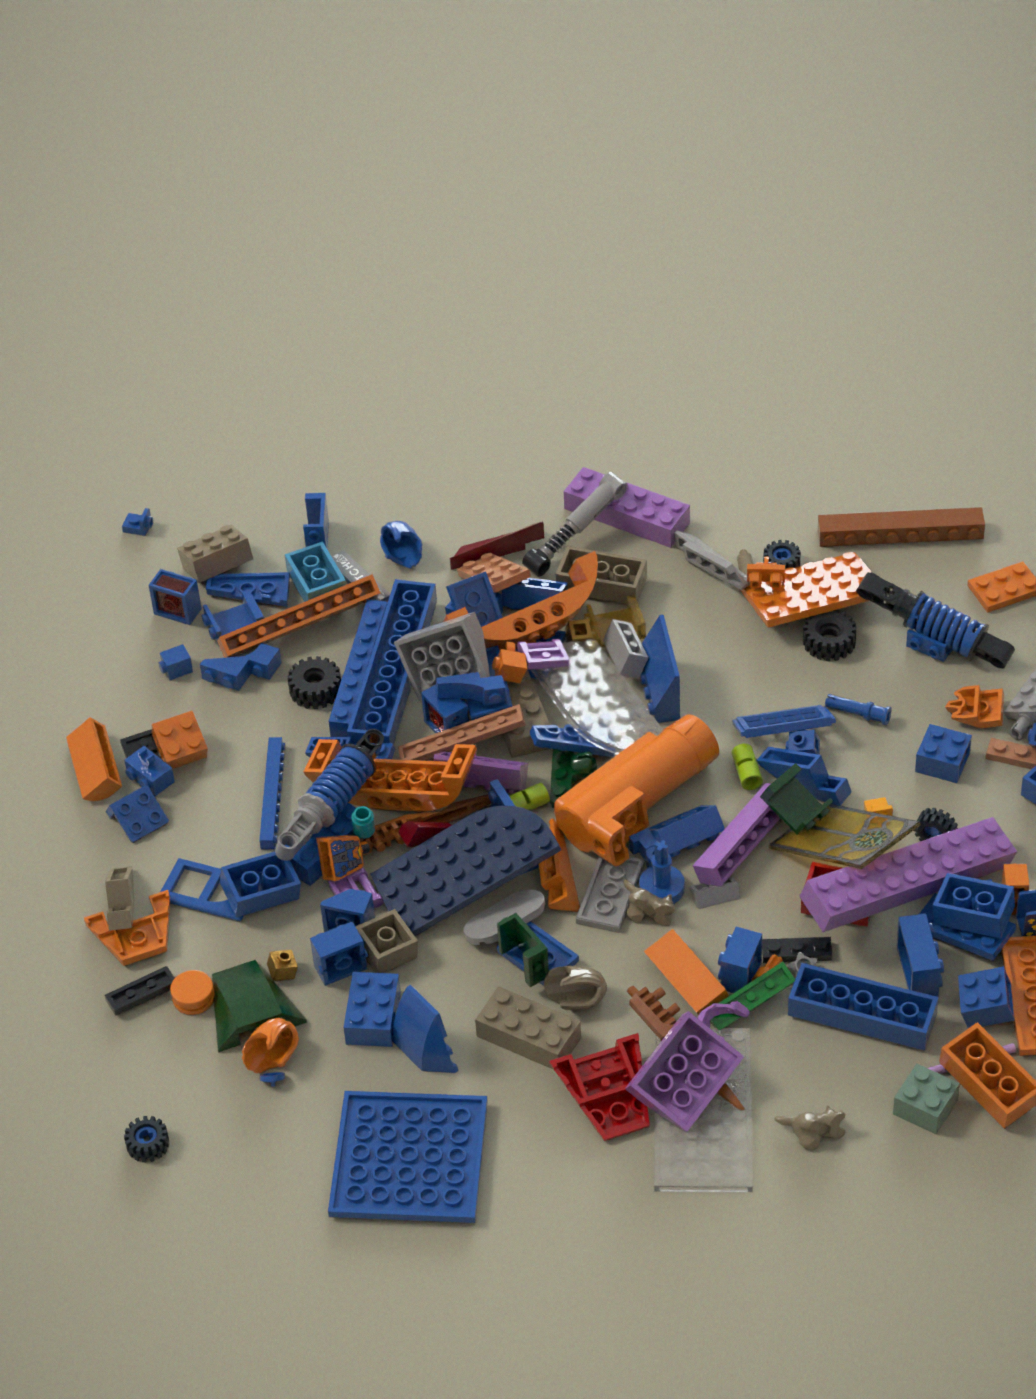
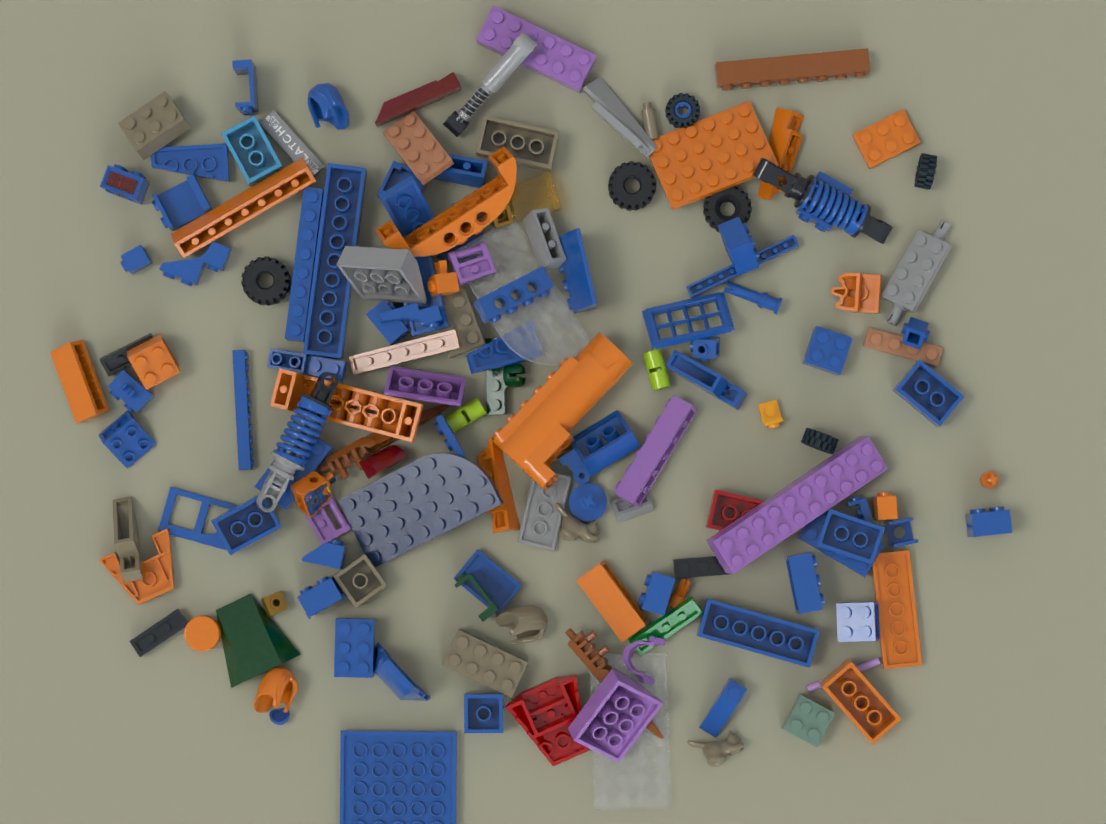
camera: 10 degrees left, 40 degrees up
(138, 523) = (74, 77): blue bracket -> none
(146, 1149) = (189, 772): black bush -> none
(363, 822) = (322, 464): teal brick -> none
(483, 927) = (457, 547): light grey tile -> none
(522, 1075) = (483, 713): none -> blue brick
(587, 682) = (486, 305): none -> blue brick
(724, 625) = (635, 200): none -> black tyre
(765, 572) = (678, 150): orange hips -> none
(794, 802) = (701, 423): dark green panel -> none
(801, 959) = (707, 591): light grey plate -> none
(821, 1081) = (723, 707): none -> blue slope
(841, 652) = (739, 245): none -> blue brick
(846, 682) = (729, 272): none -> blue piece
(847, 837) = (742, 466): clear yellow piece -> none
(896, 572) = (785, 145): none -> orange wedge

